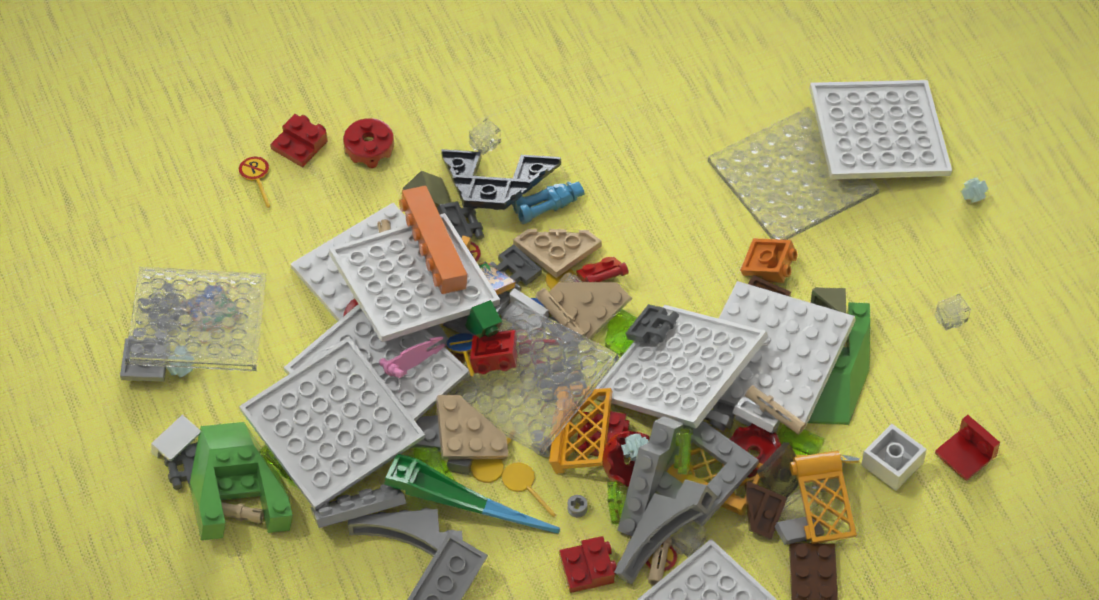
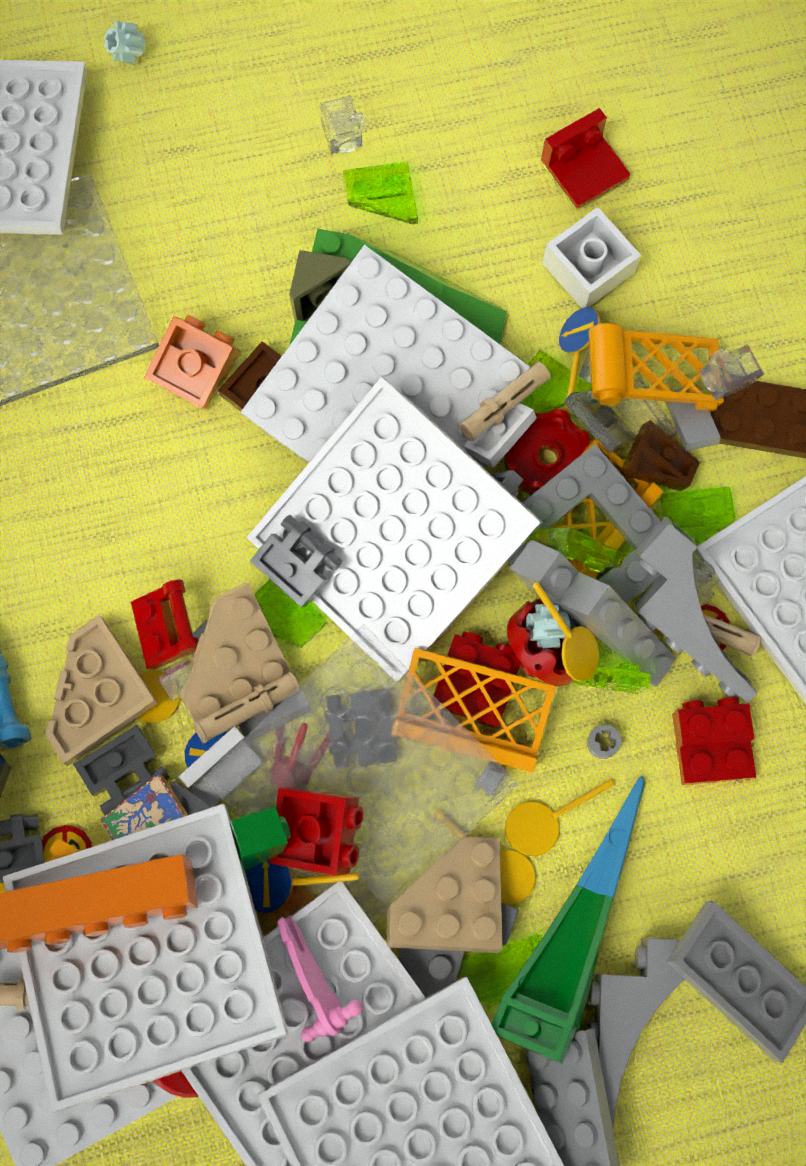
camera: 85 degrees left, 20 degrees up
(621, 464) = (579, 646): none -> yellow piece
(735, 541) = (699, 511): none -> clear neon green wing
(830, 536) = (730, 371): none -> clear brick
(913, 342) = (382, 191): none -> clear neon green wing

